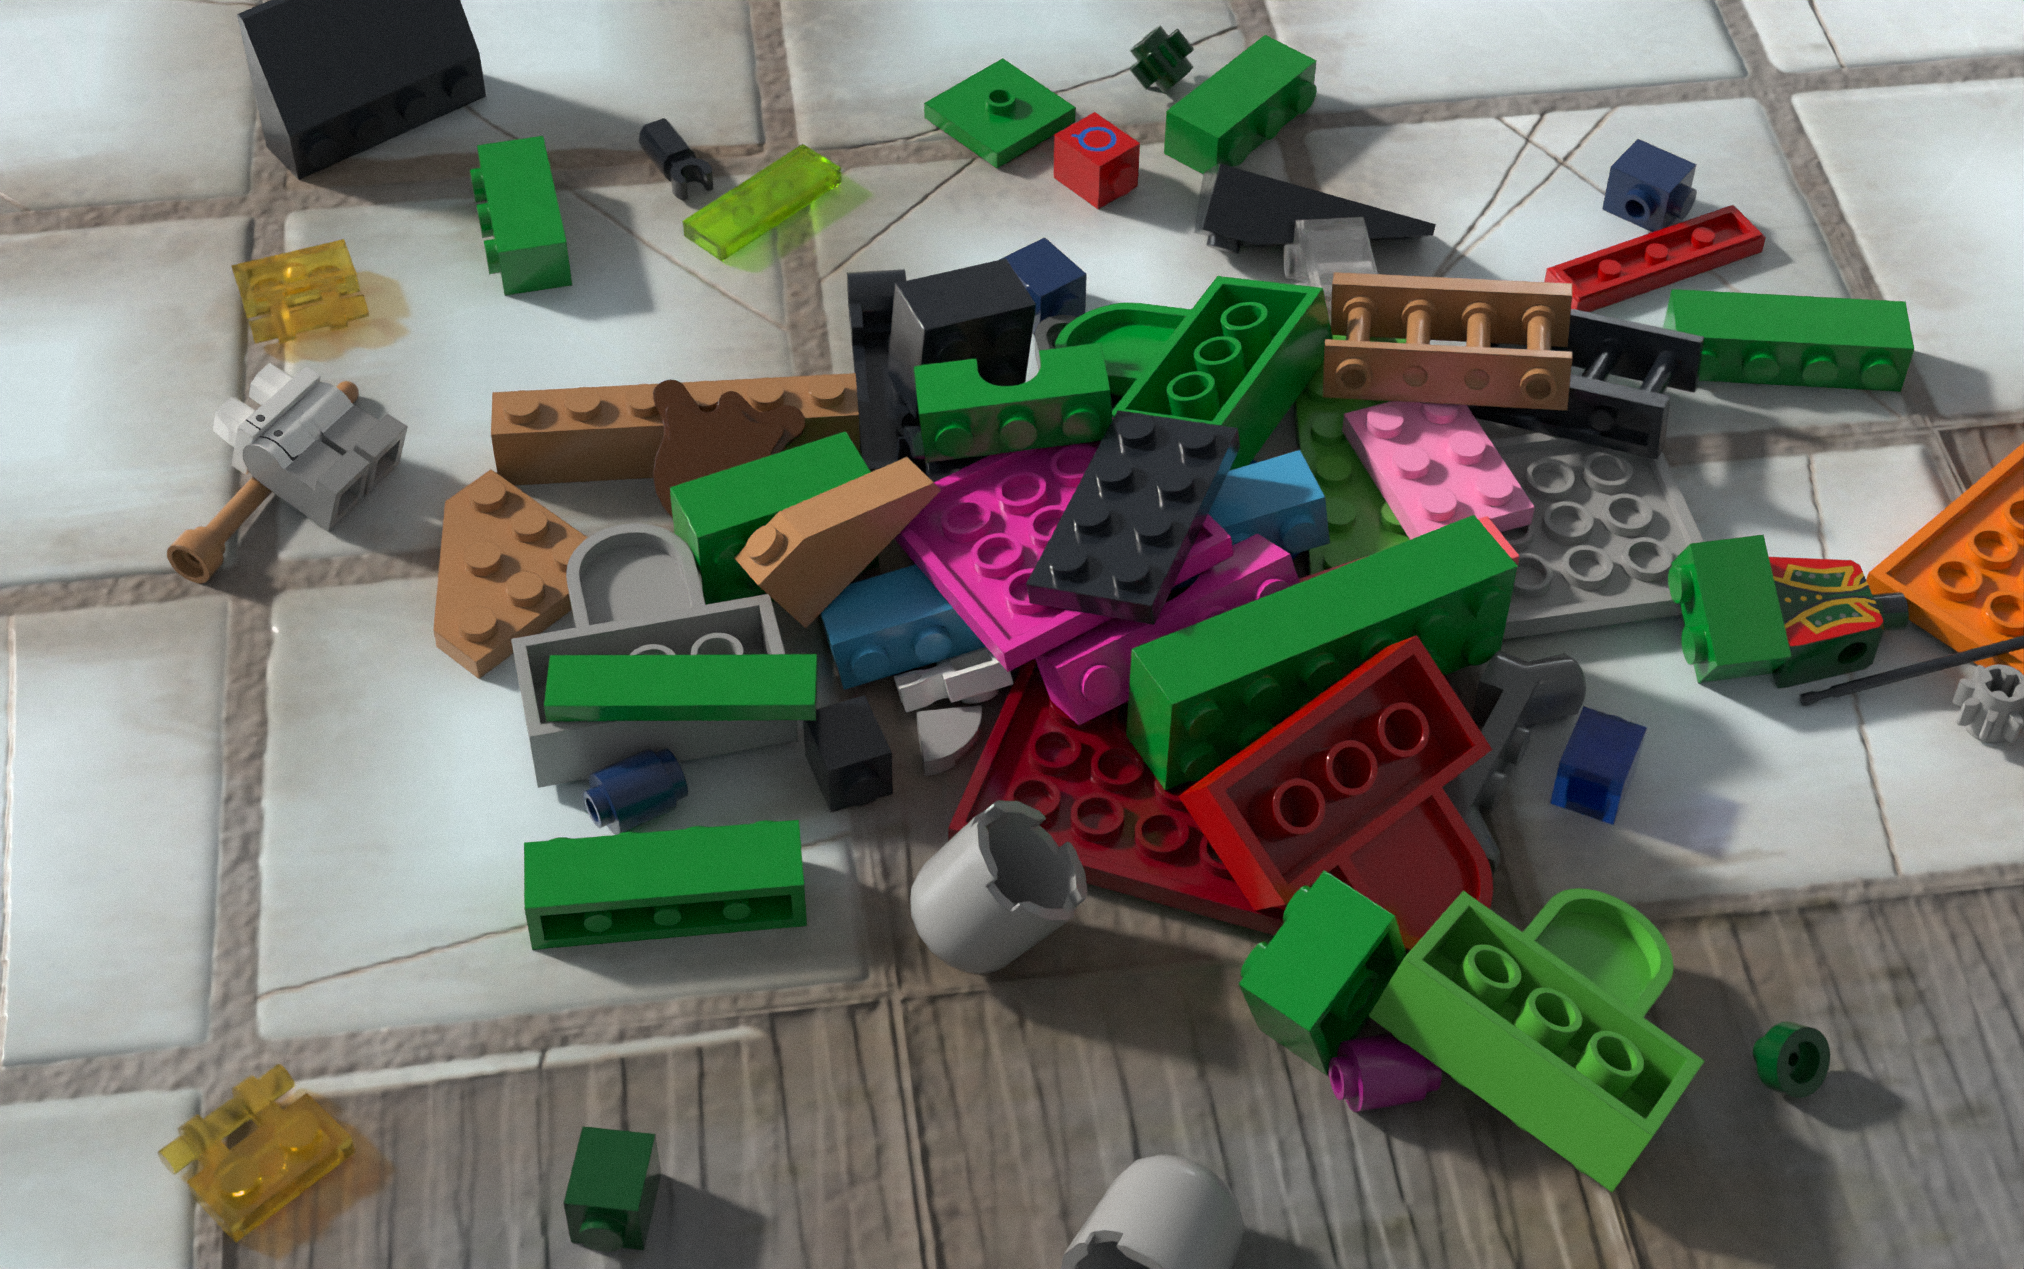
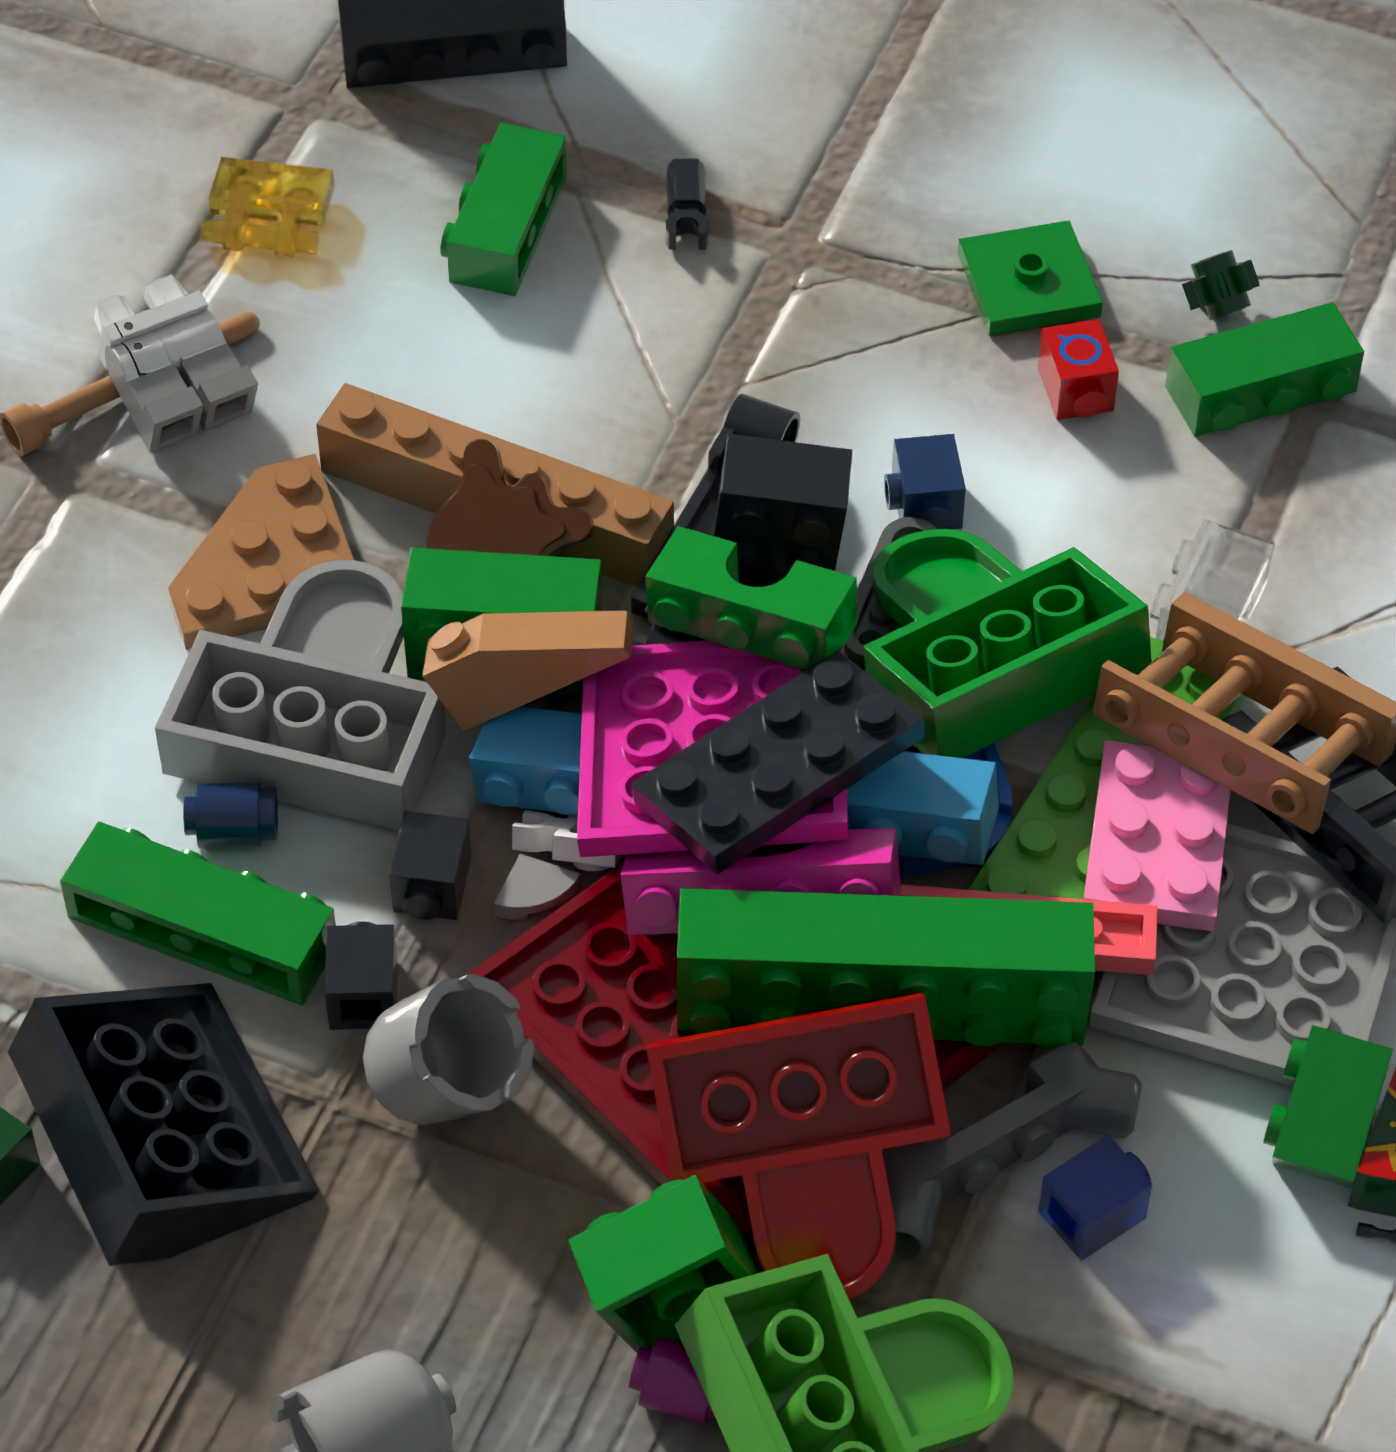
camera: 30 degrees right, 5 degrees up
(681, 687) = (304, 742): green tile -> none
(752, 1078) = (157, 1118): none -> black slope
(762, 202) = (738, 282): clear neon green tile -> none
(854, 871) = (359, 974): none -> black brick
(1262, 211) = (1187, 481): black wedge -> none

